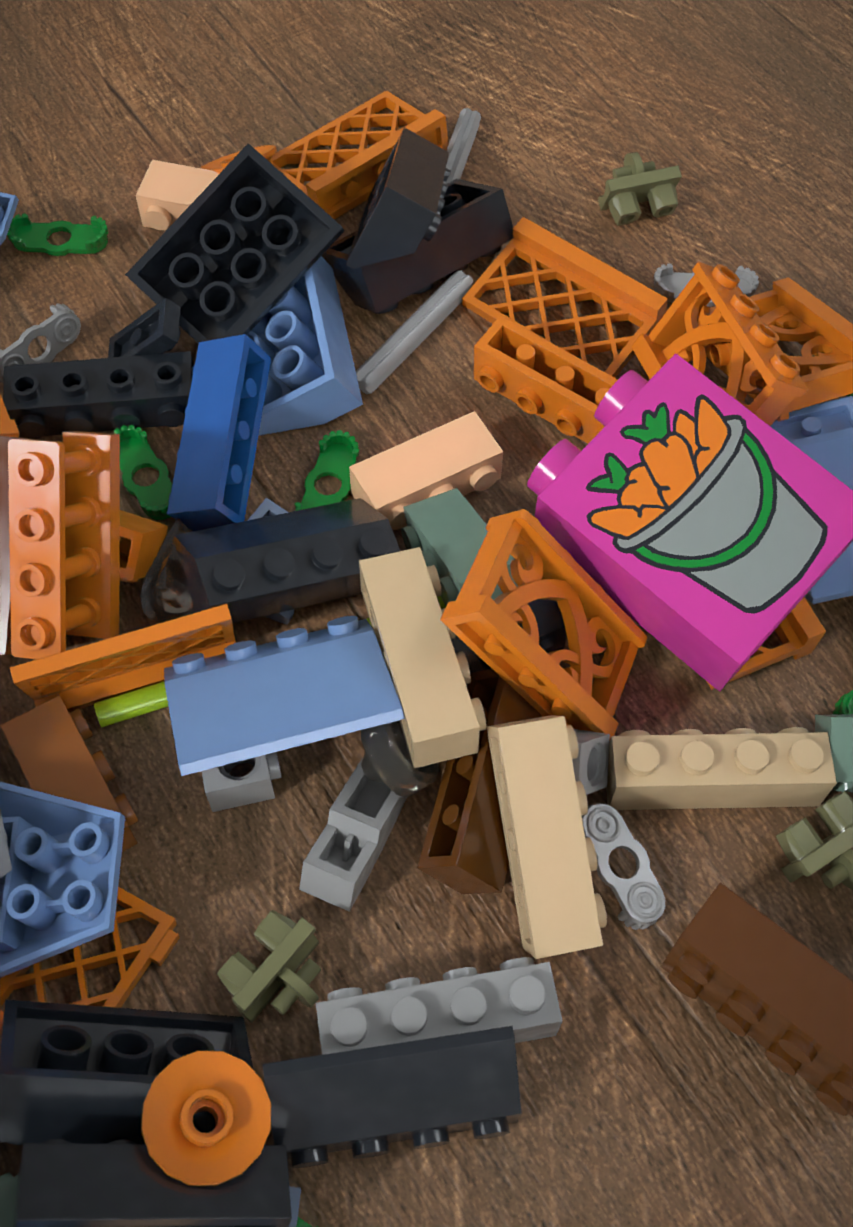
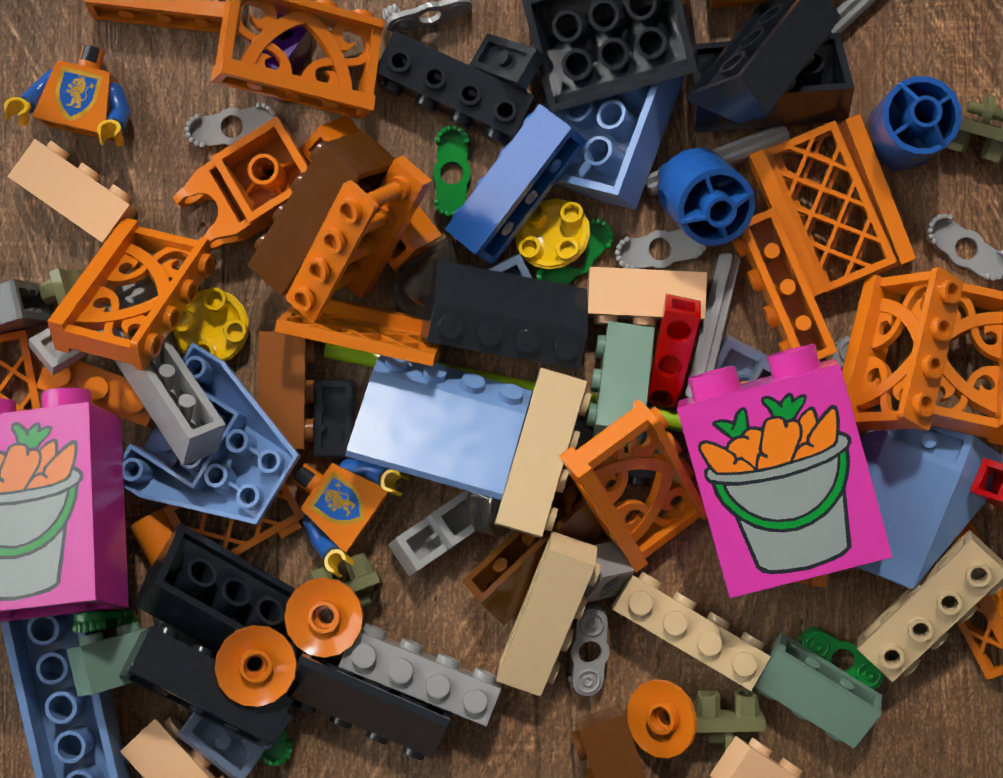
camera: 35 degrees right, 25 degrees up
(150, 783) = (333, 416): none -> black plate
(216, 866) = (343, 505): none -> torso
(244, 990) = (305, 621): none -> orange dish
(291, 468) = (554, 234): none -> yellow dish
(425, 338) = (705, 196): none -> blue cylinder
(436, 411) = (635, 252): none -> light grey piece
(475, 317) = (776, 194): none -> orange fence
(485, 474) = (673, 349): none -> red leg
(515, 457) = (715, 316): none -> light grey axle
(579, 191) = (914, 122): none -> blue cylinder
(761, 855) = (648, 719): none -> orange dish

